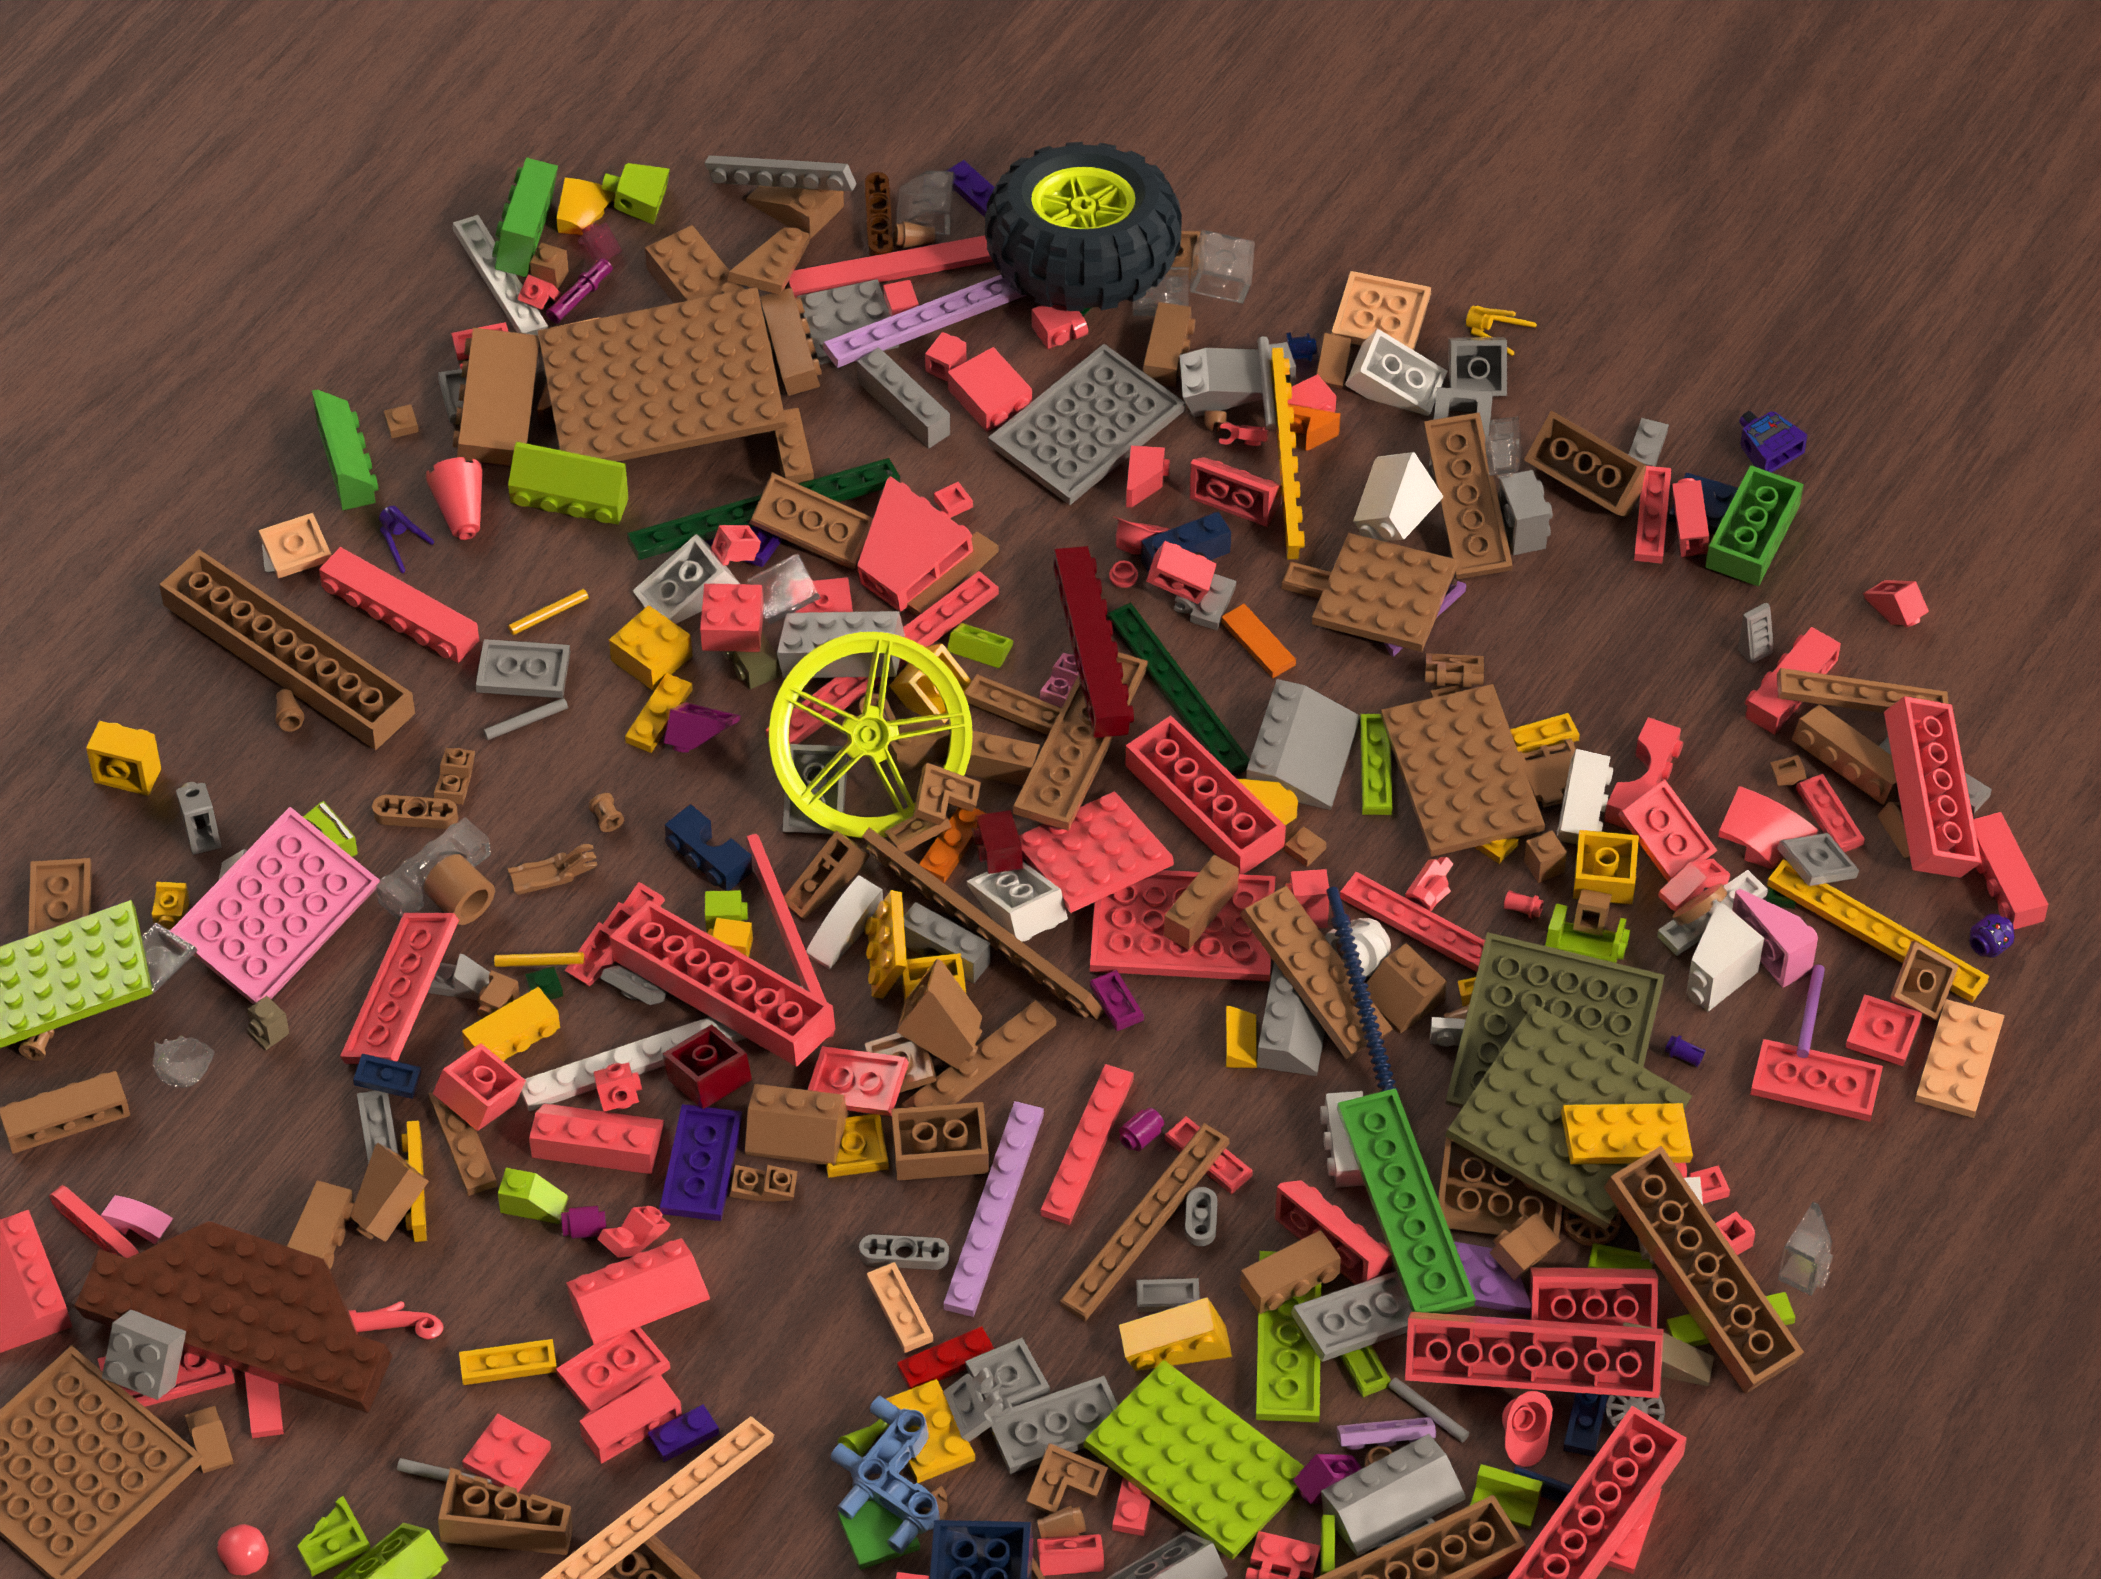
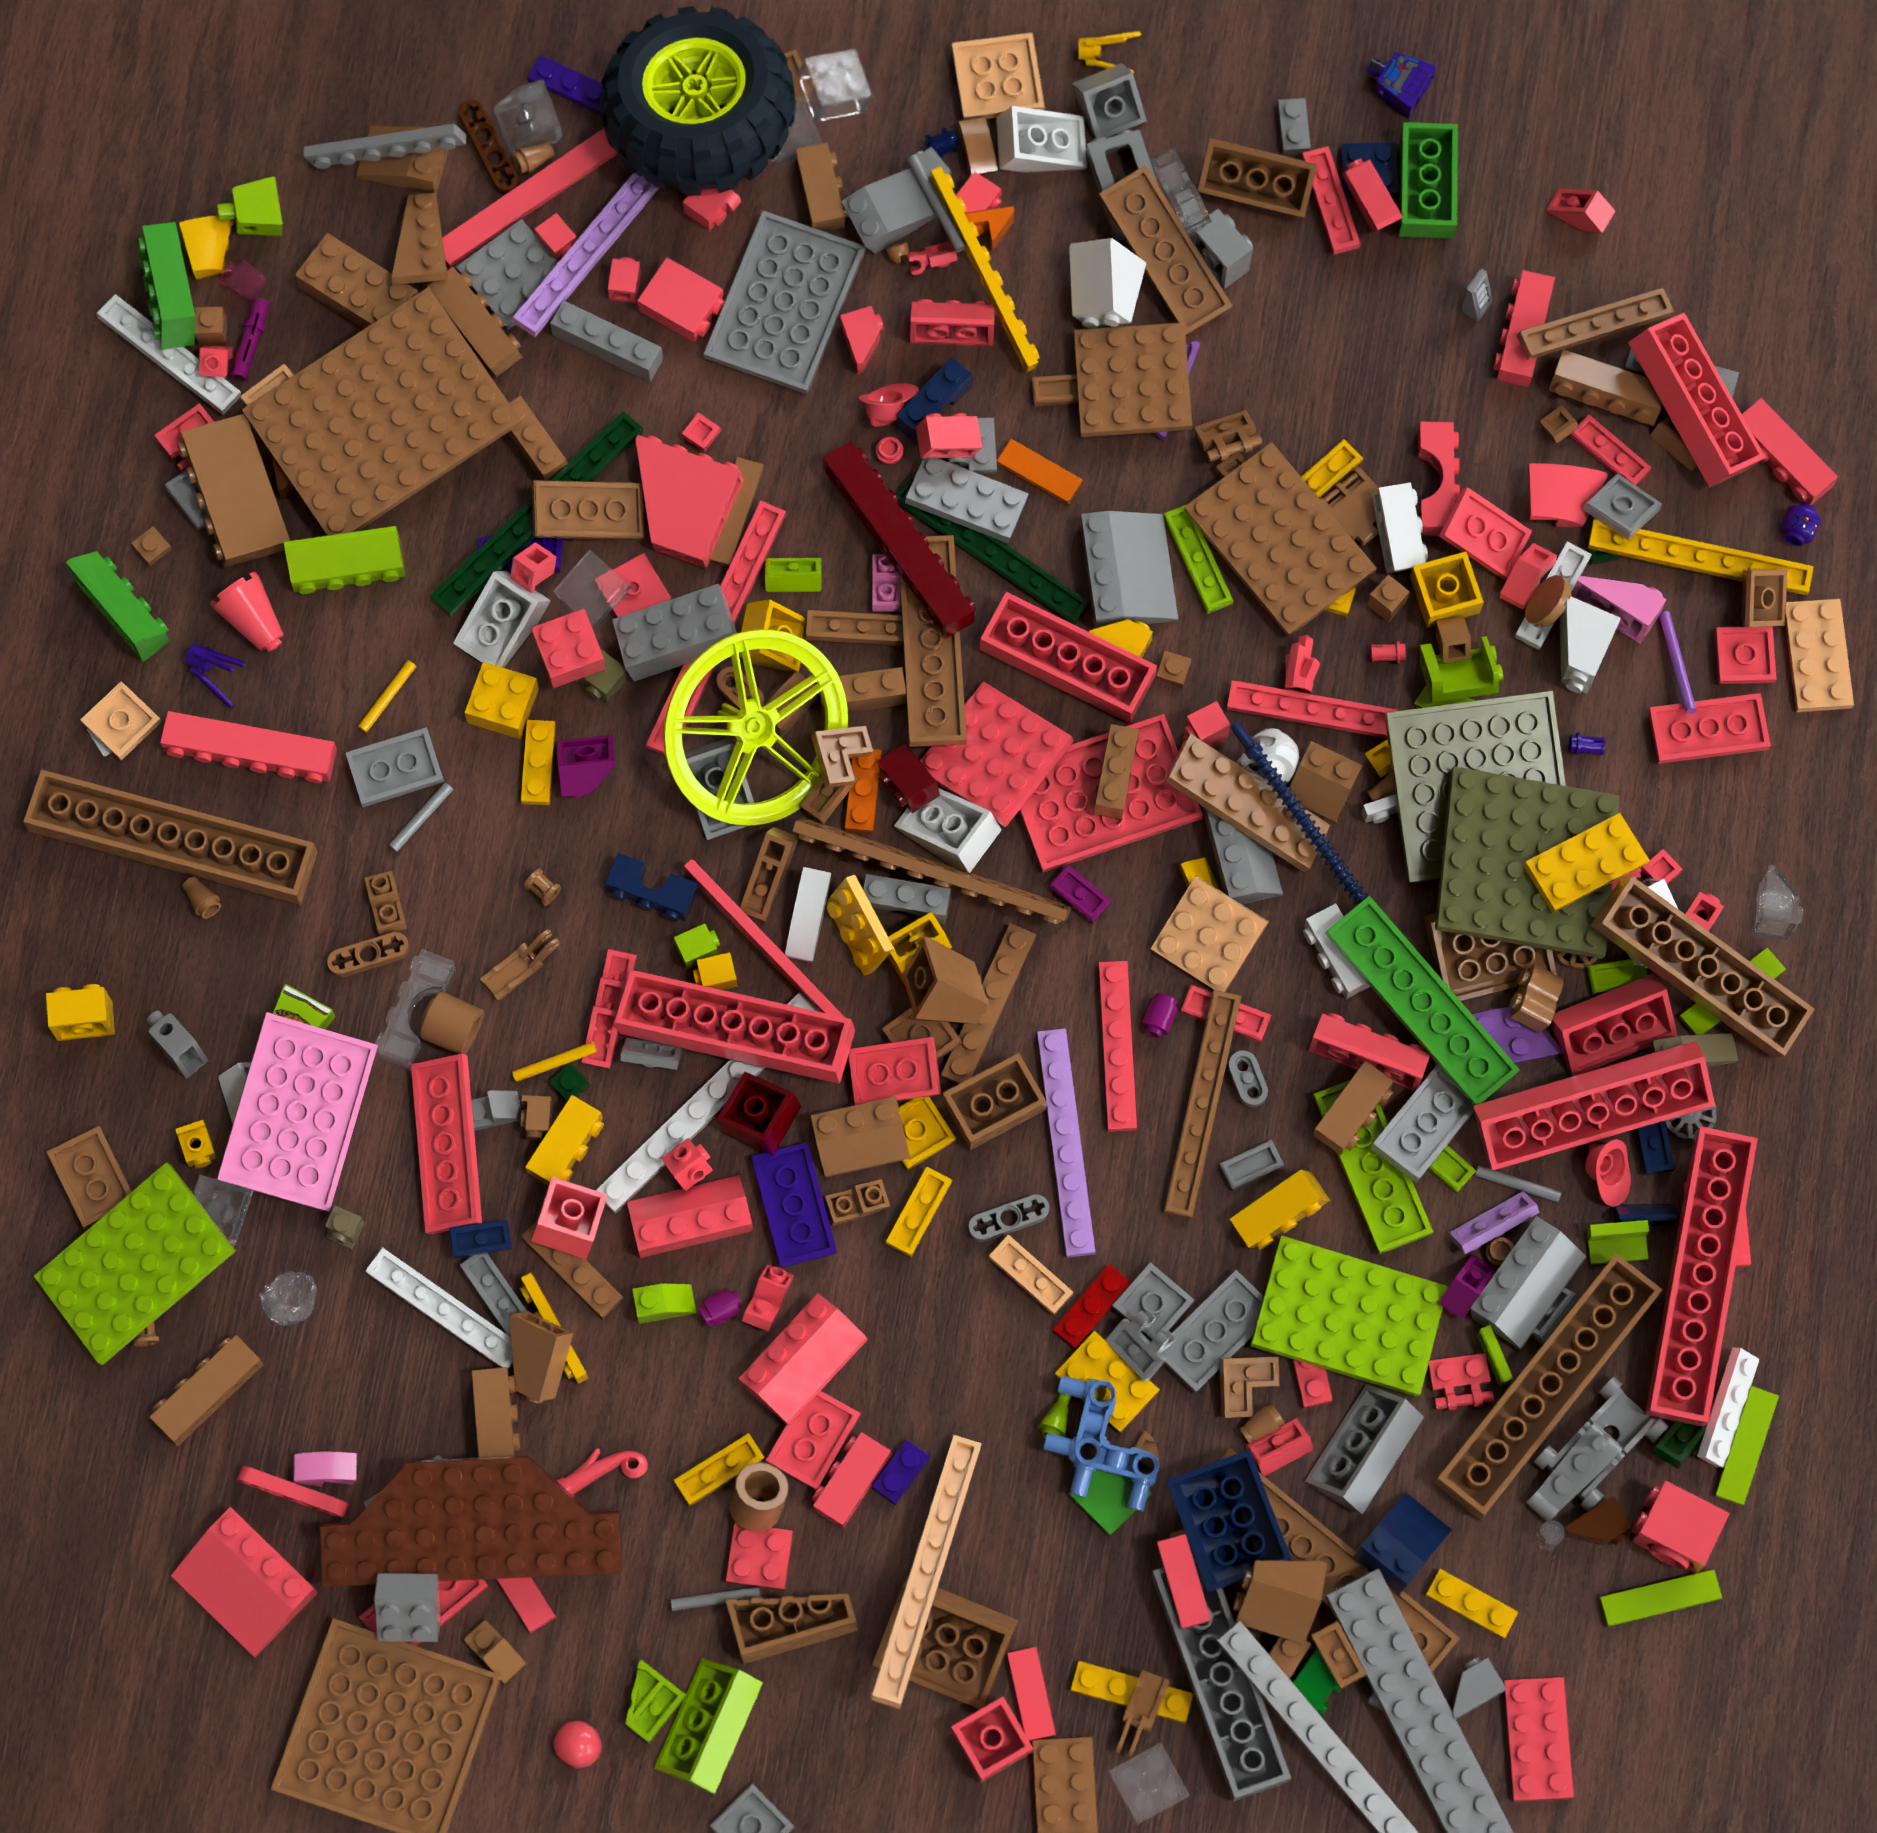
camera: 25 degrees left, 20 degrees up
(318, 1122) = (442, 1308): none -> white plate
(530, 1392) = (758, 1497): none -> medium nougat piece
(818, 1212) = (918, 1211): none -> yellow plate
(1176, 636) = (967, 498): none -> light grey plate
(1224, 1075) = (1209, 935): none -> light nougat plate

